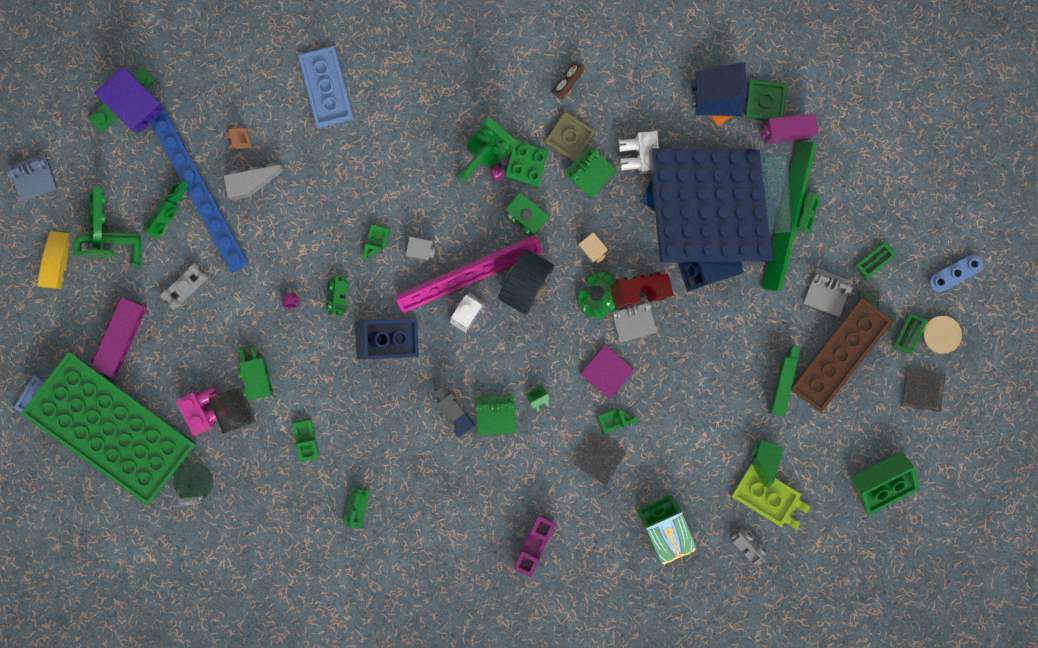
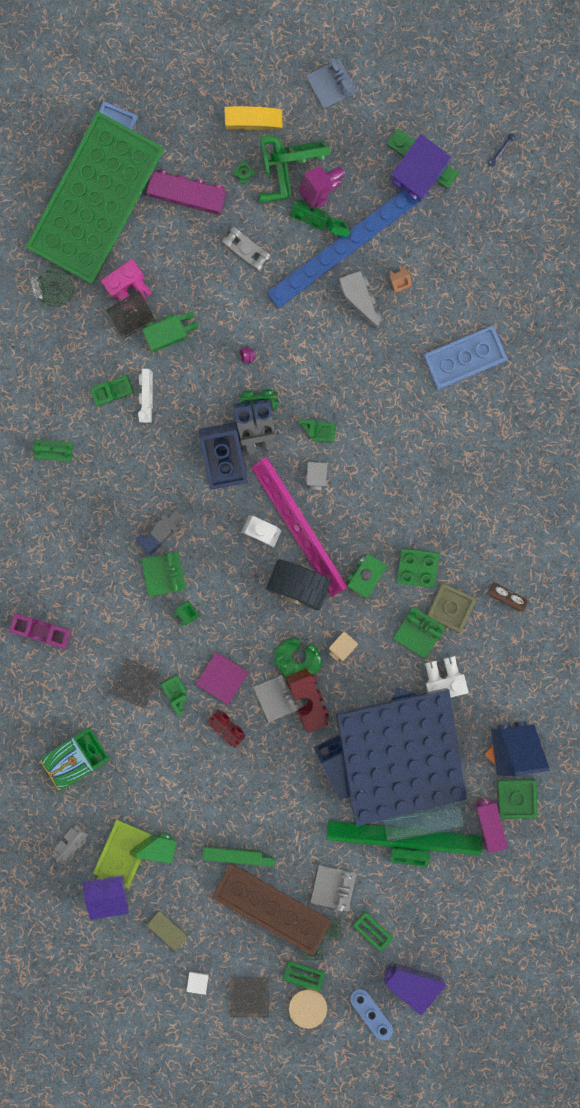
camera: 75 degrees right, 0 degrees up
(102, 277) = (243, 167): none -> green plate
(114, 9) = (492, 162): none -> dark blue hinge
(131, 204) = (318, 184): none -> magenta brick
(317, 407) = (146, 396): none -> white hinge
(367, 302) = (255, 431): none -> hips
(487, 146) = (427, 527): green plate -> none
(496, 172) = (404, 540): magenta plate -> none
(649, 379) = (221, 721): none -> dark red hinge
(807, 517) = (105, 897): none -> dark purple slope
(847, 461) = (167, 930): none -> olive tile
(885, 482) = (151, 971): green slope -> none
(902, 439) = (197, 982): none -> white tile
(936, 226) = (413, 986): none -> dark purple slope

